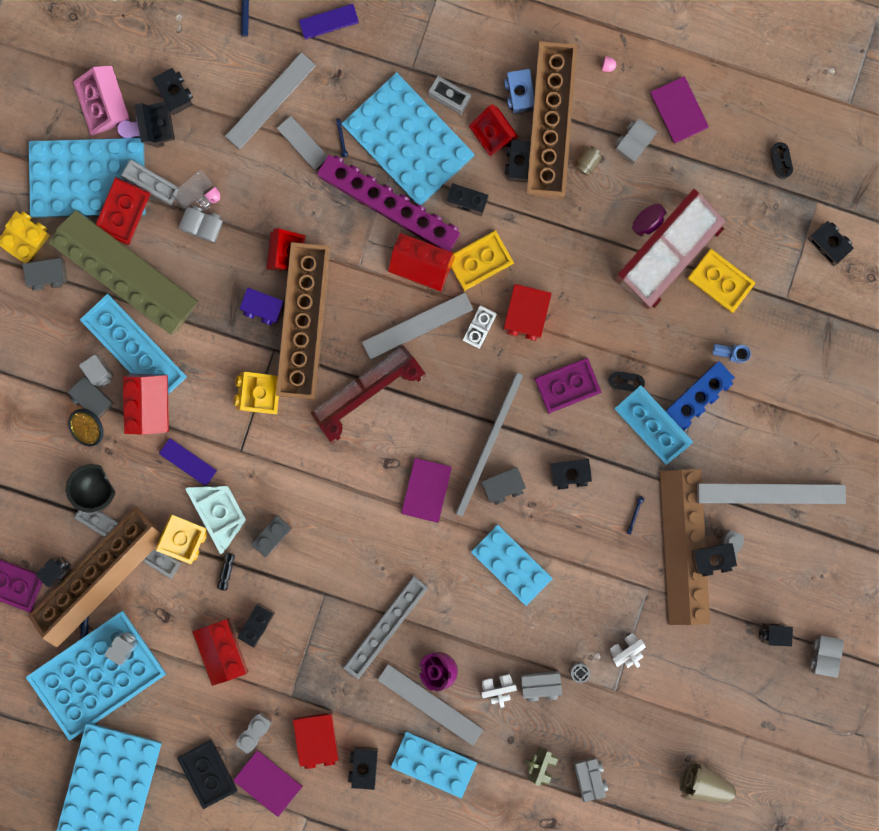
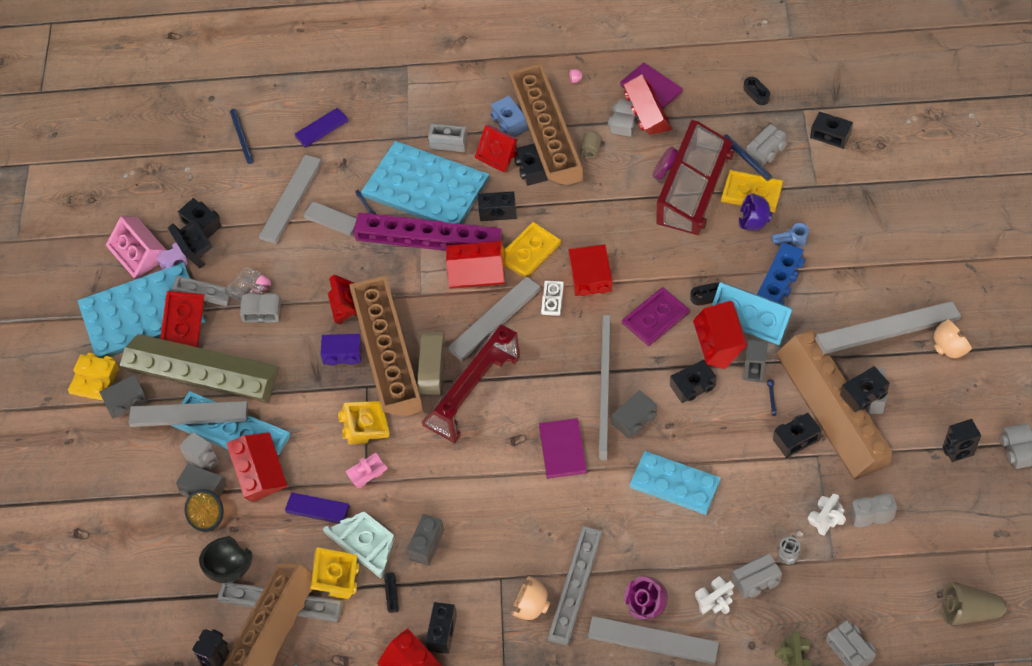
camera: 10 degrees left, 30 degrees down
(99, 320) = (188, 414): none -> light grey tile
(242, 446) = (366, 470): none -> bright pink hips
(340, 356) = (431, 362): none -> dark tan plant
(341, 631) = (531, 600): none -> light nougat cylinder
(614, 440) = (720, 334): none -> red slope
(635, 479) = (755, 360): none -> dark grey brick
(649, 568) = (790, 443): none -> black brick
(660, 144) = (646, 106): none -> slope
(663, 665) = (877, 510): none -> light grey brick
(709, 314) = (755, 212): none -> dark purple cylinder
(733, 240) = (752, 162): none -> dark blue bar
(758, 235) = (767, 144): none -> light grey brick
(820, 529) = (950, 341): none -> light nougat cylinder

